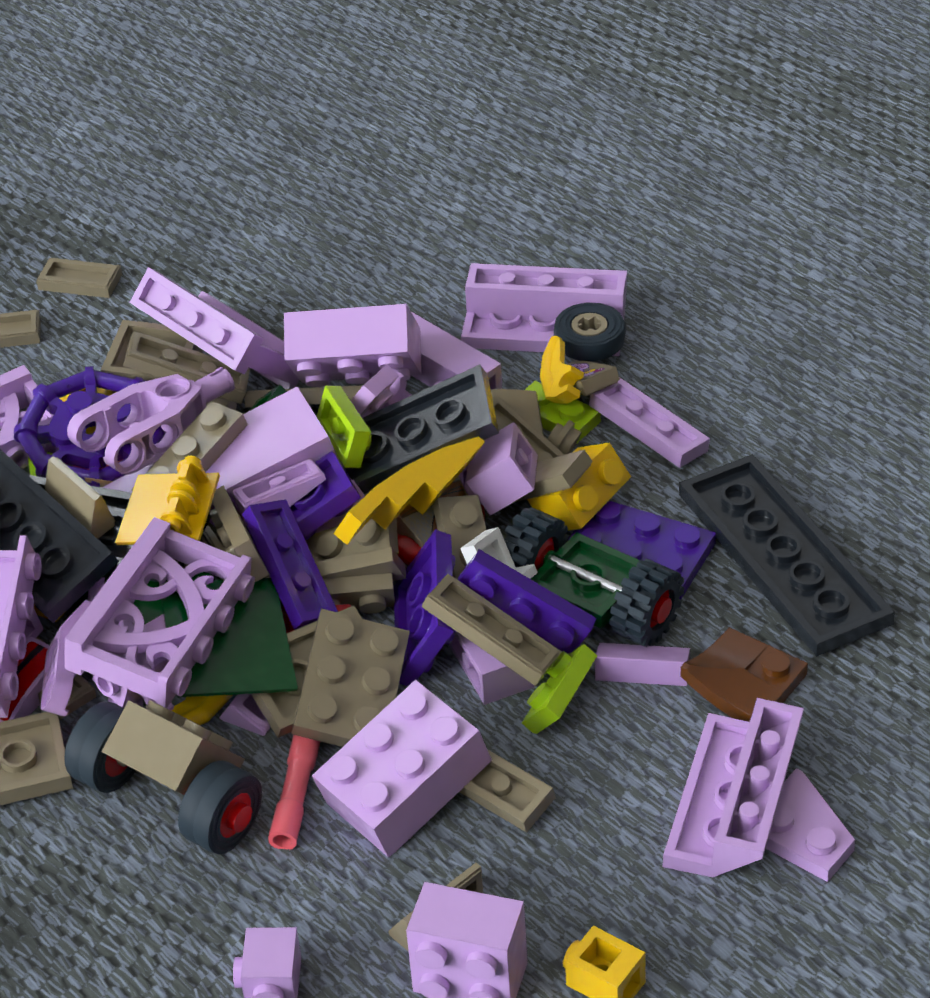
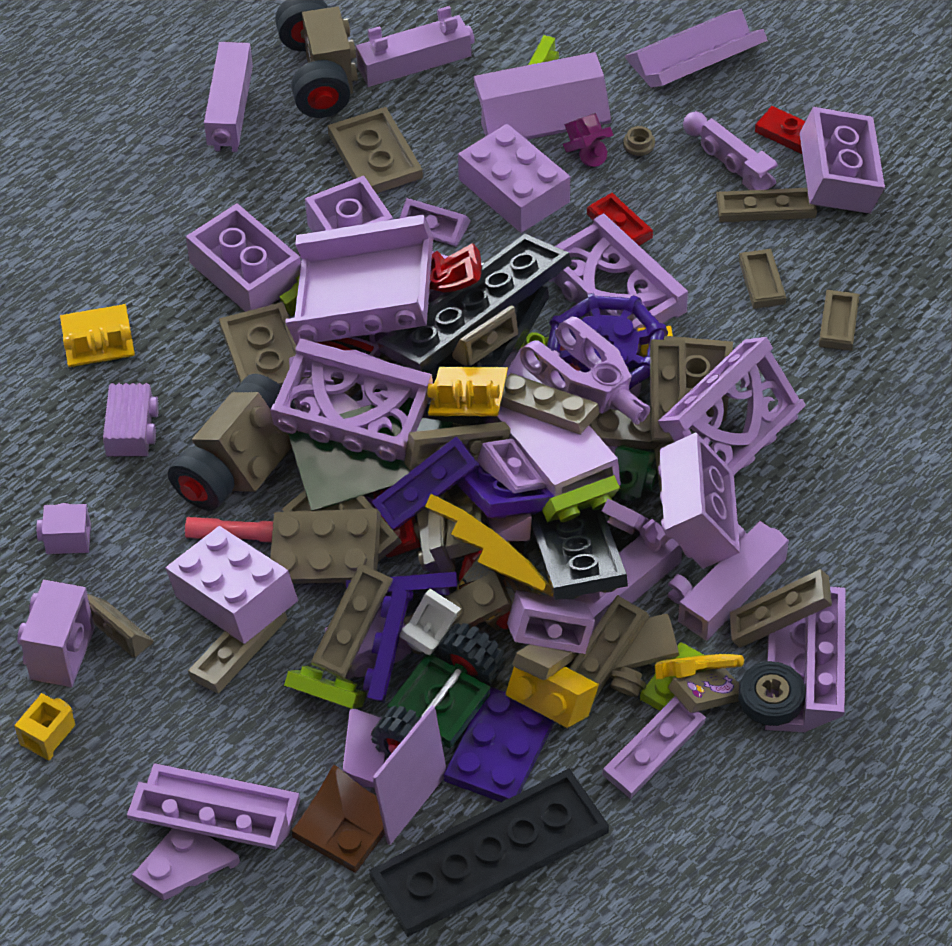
camera: 85 degrees right, 10 degrees up
(87, 906) = (129, 420): none -> lavender brick
(492, 305) = (780, 608): none -> dark tan plate
(719, 573) = (410, 775): none -> lavender piece

